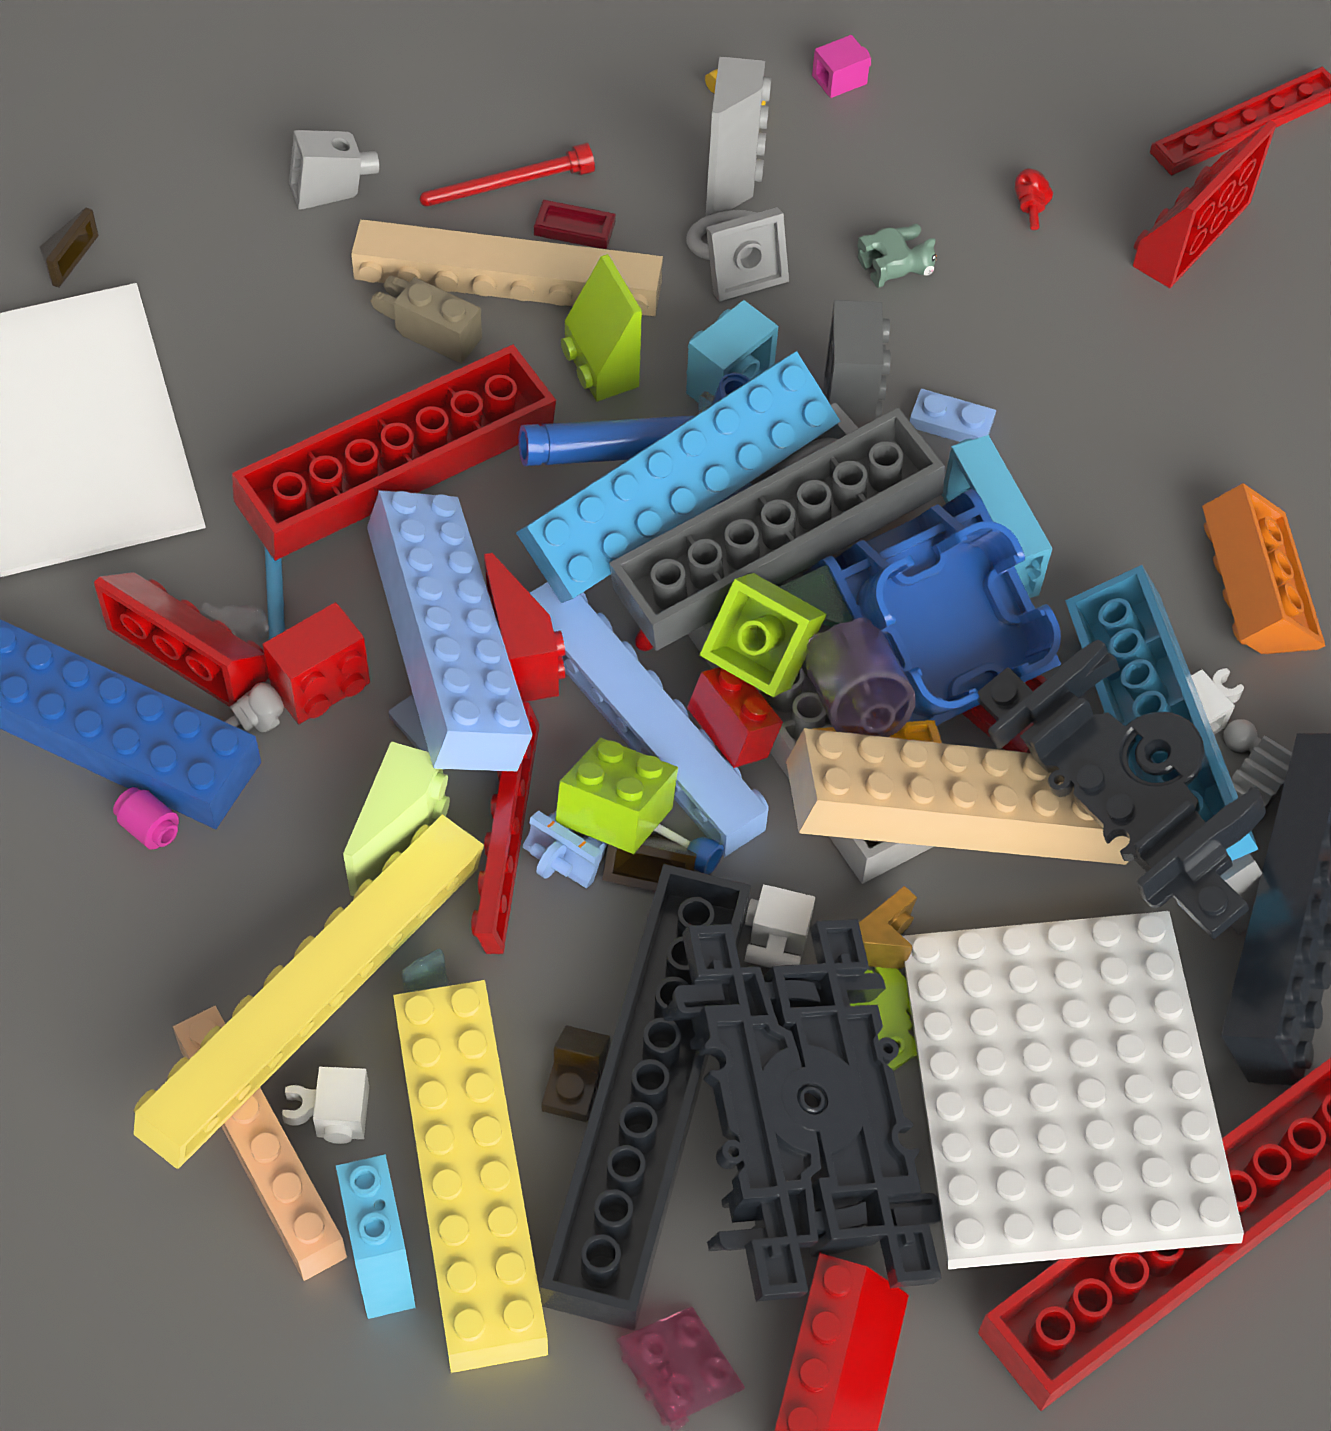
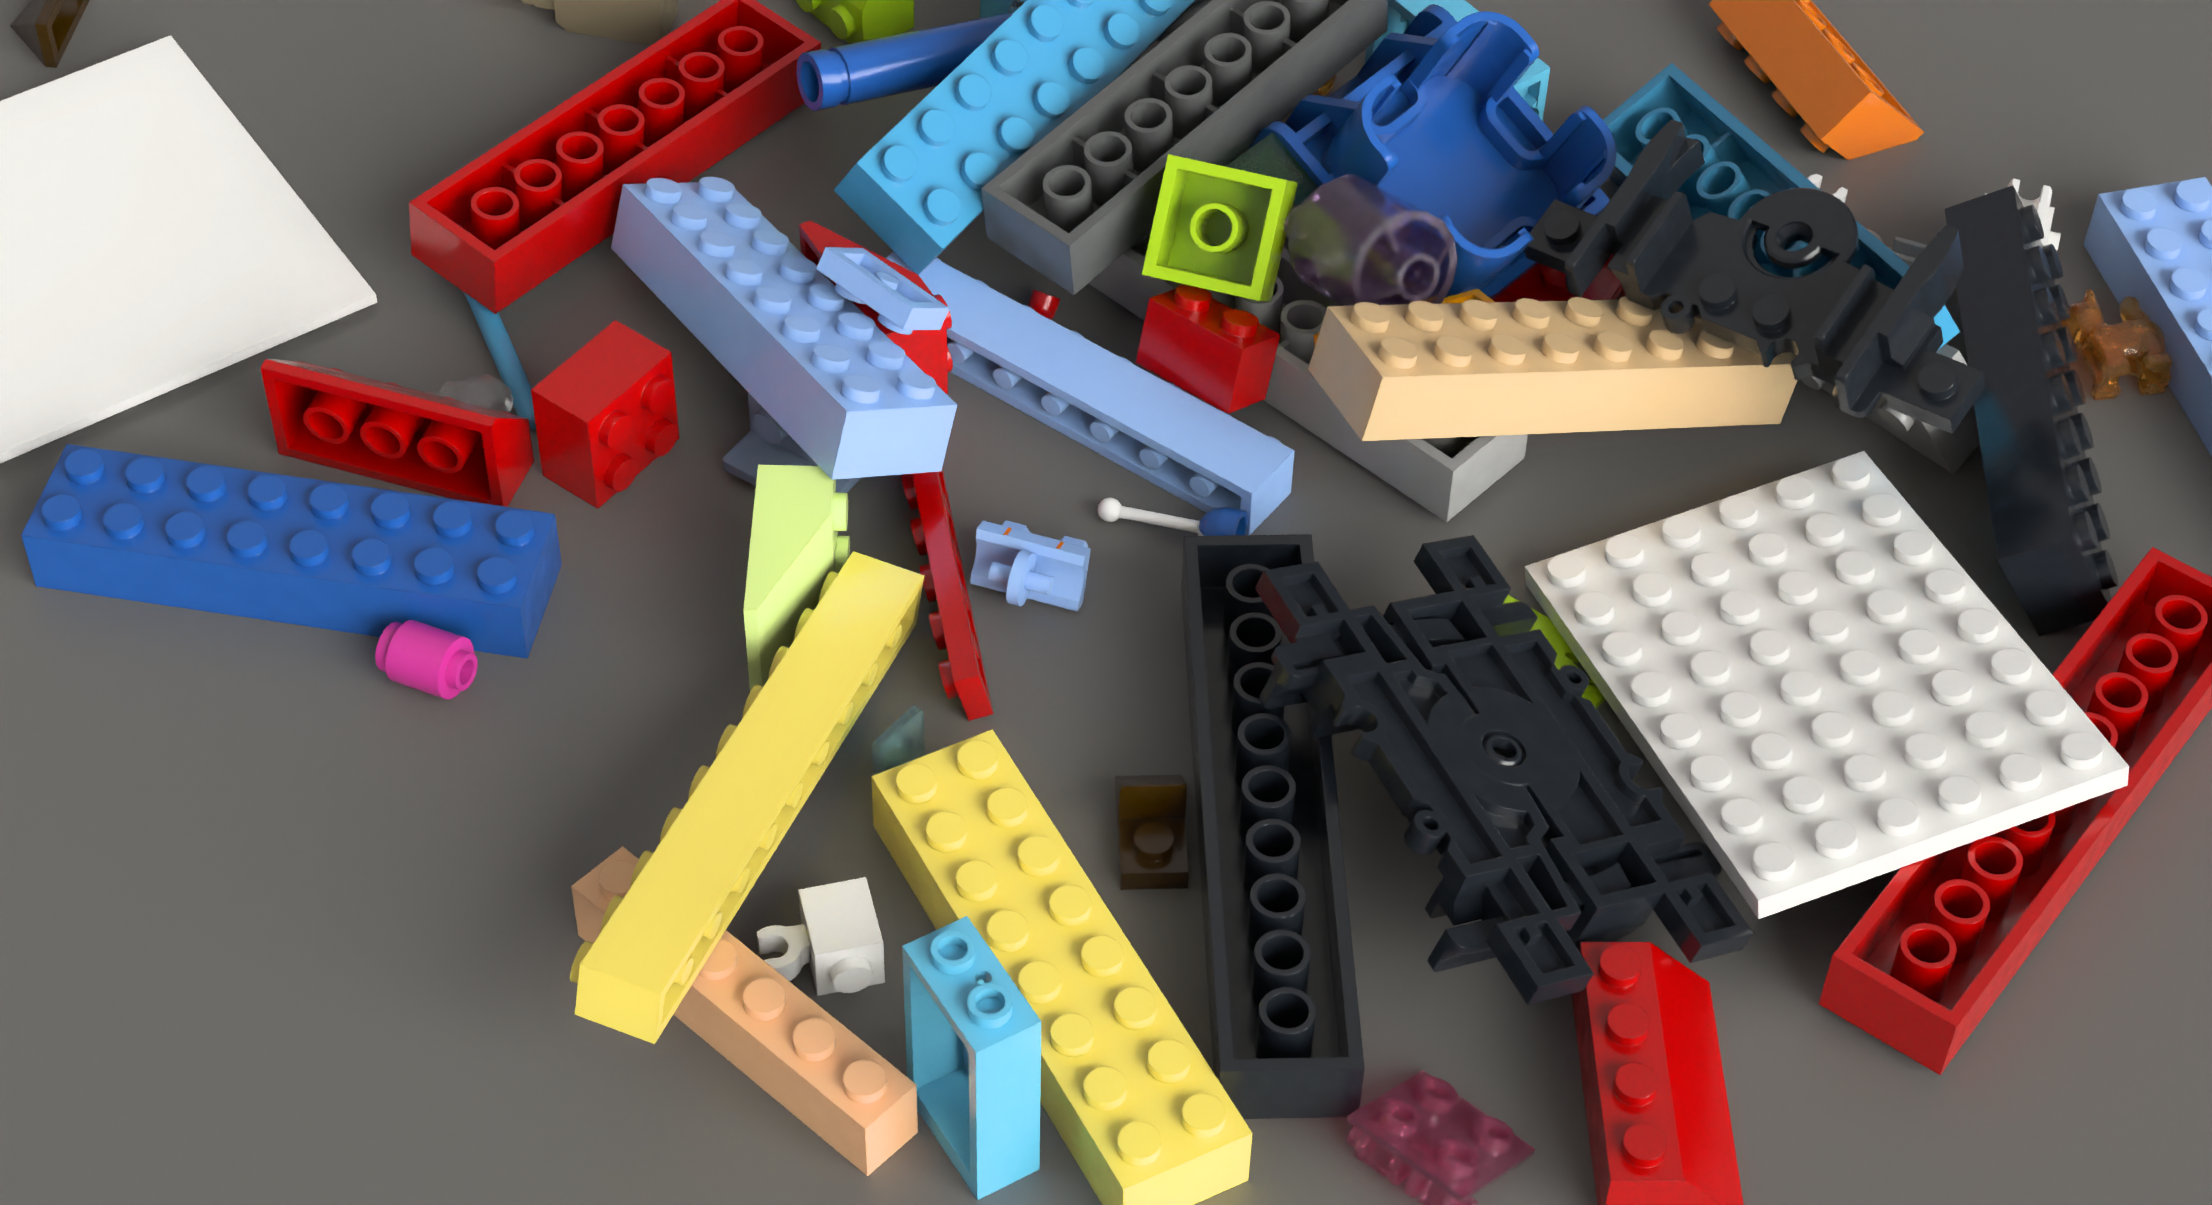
camera: 15 degrees left, 10 degrees down
(258, 708) = (540, 487): light grey piece -> none
(515, 627) = (872, 282): none -> light blue plate
(616, 795) = (1083, 476): lime brick -> none
(646, 864) = (1140, 560): dark brown slope -> none
(780, 924) = (1365, 569): white brick -> none
(883, 931) = (1510, 550): pearl gold slope -> none

